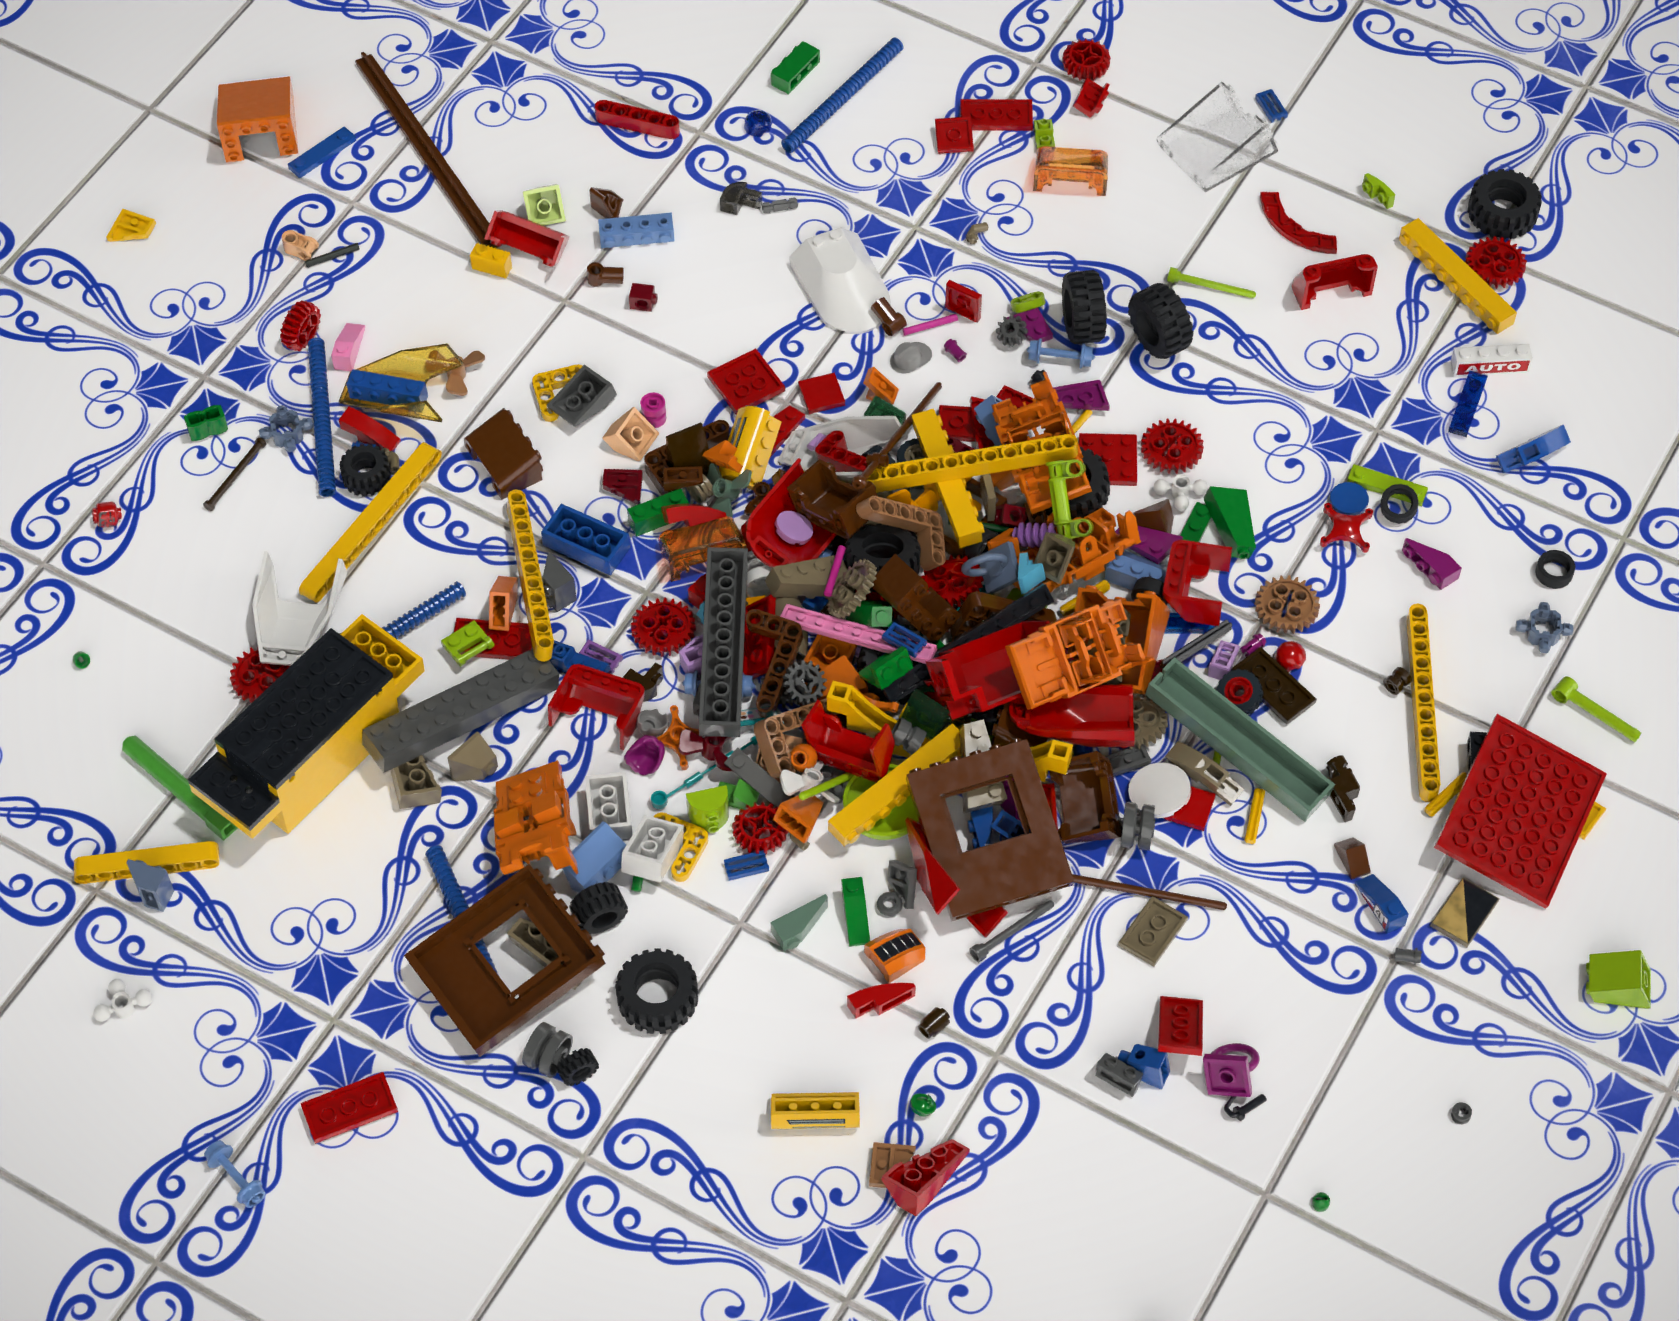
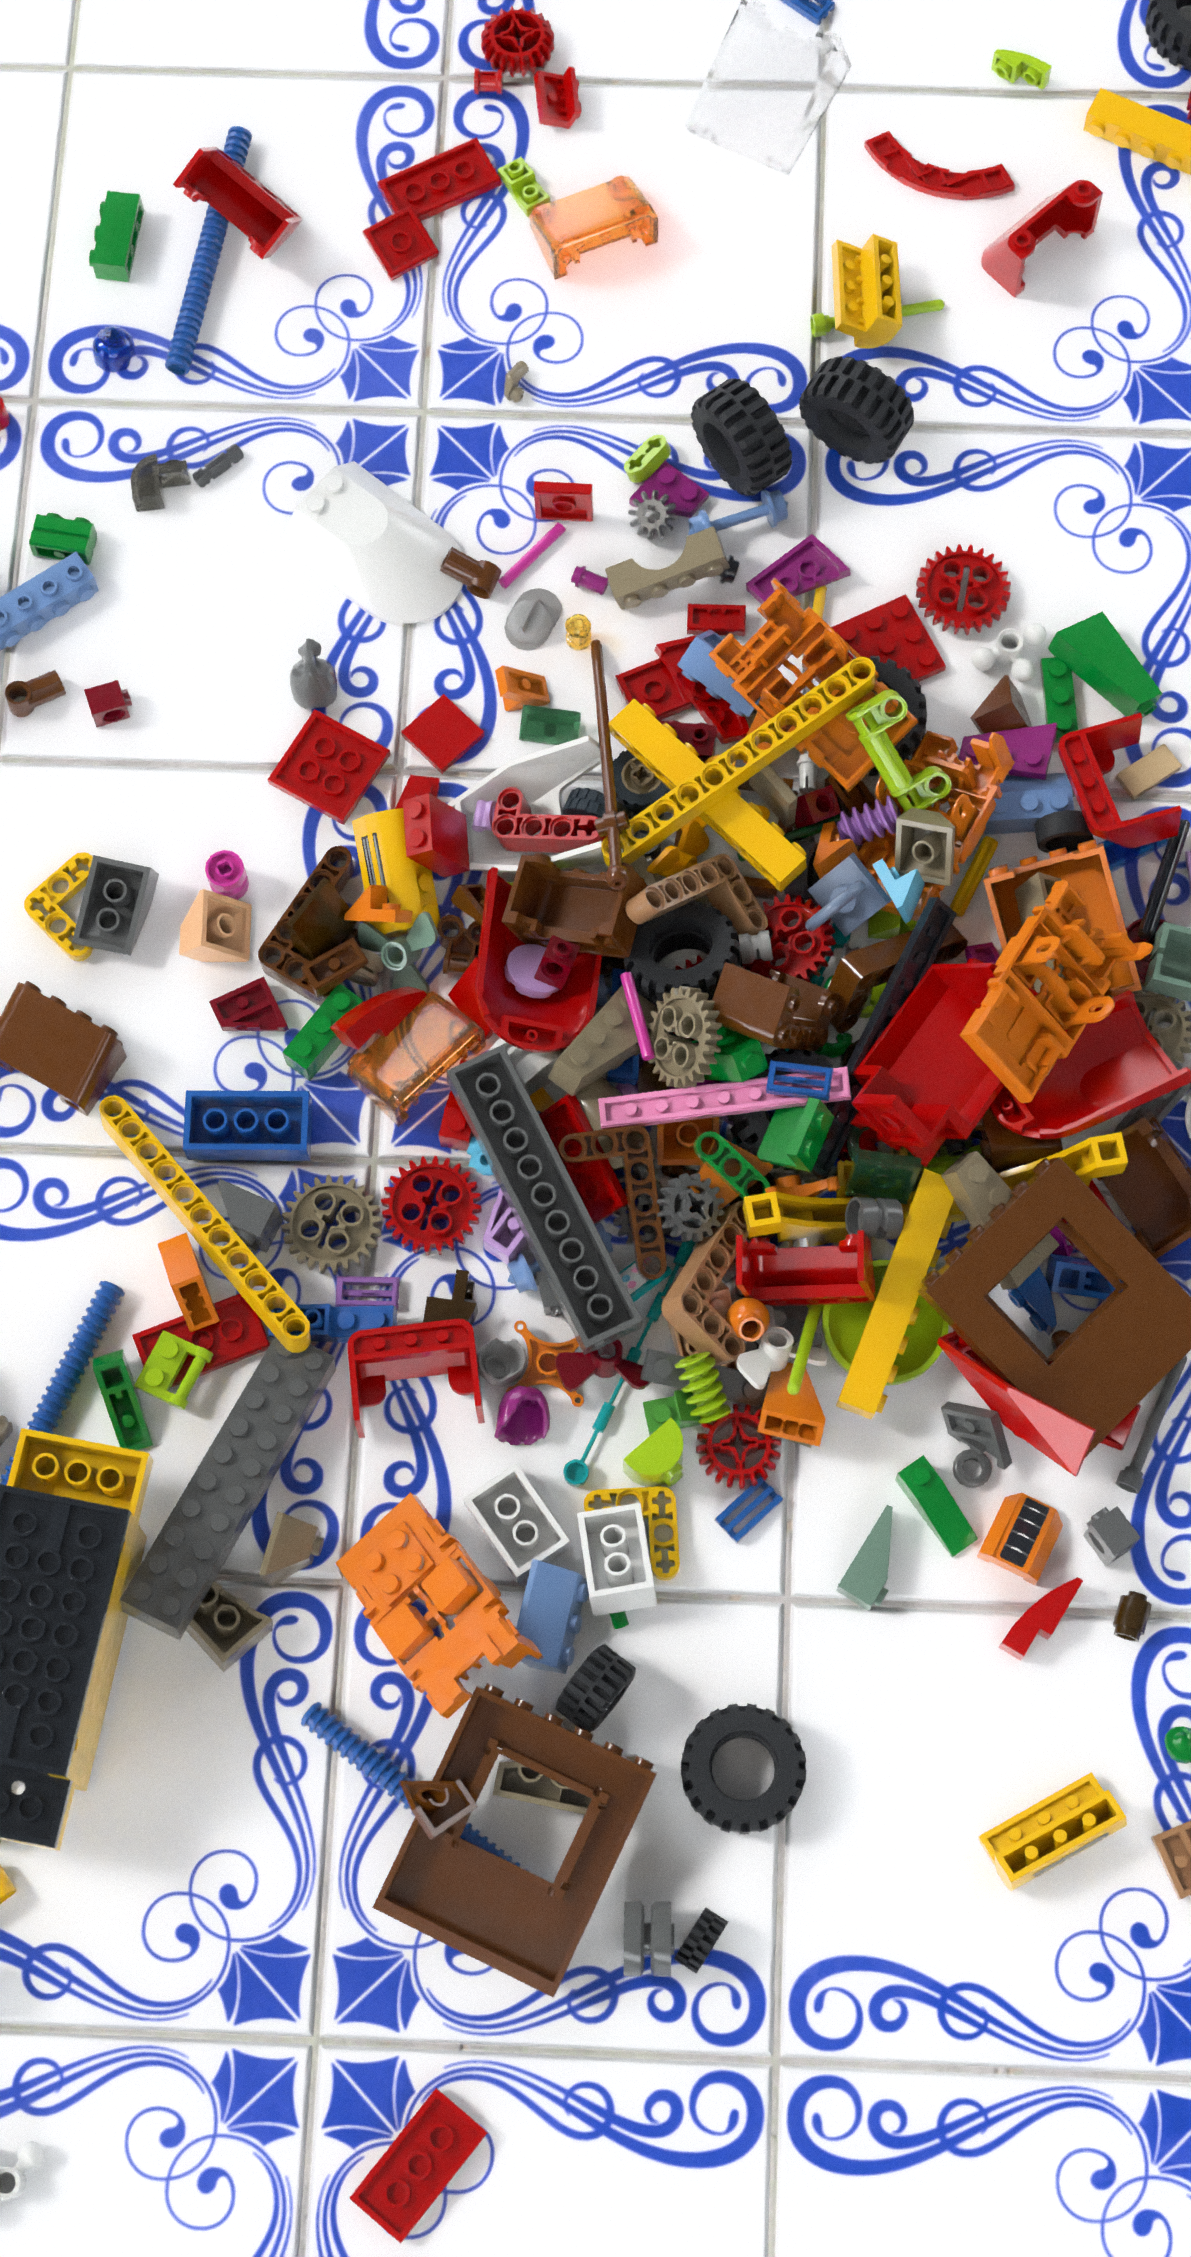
camera: 25 degrees left, 15 degrees up
(430, 644) = (122, 1400): none -> green slope
(470, 915) = (438, 1803): none -> reddish brown slope
(601, 611) = (306, 1214): none -> dark tan gear
(667, 201) = (60, 537): none -> green brick
(754, 779) = (704, 1387): none -> lime piece
(764, 332) = (313, 678): none -> dark grey piece
(781, 436) = (436, 835): none -> red brick
(807, 525) = (557, 962): none -> dark red brick
(837, 663) = (723, 1153): none -> green beam
(873, 71) = (239, 198): none -> red windscreen
(929, 571) = (755, 947): none -> light grey wheel
(931, 372) = (574, 624): none -> clear yellow bush
(946, 971) = (1110, 1535): none -> dark grey brick
(1023, 361) = (700, 559): none -> dark tan arch
(1056, 73) = (488, 81): none -> red bush
(1208, 265) = (867, 291): none -> yellow brick
(1225, 589) = (1148, 772): none -> tan tile

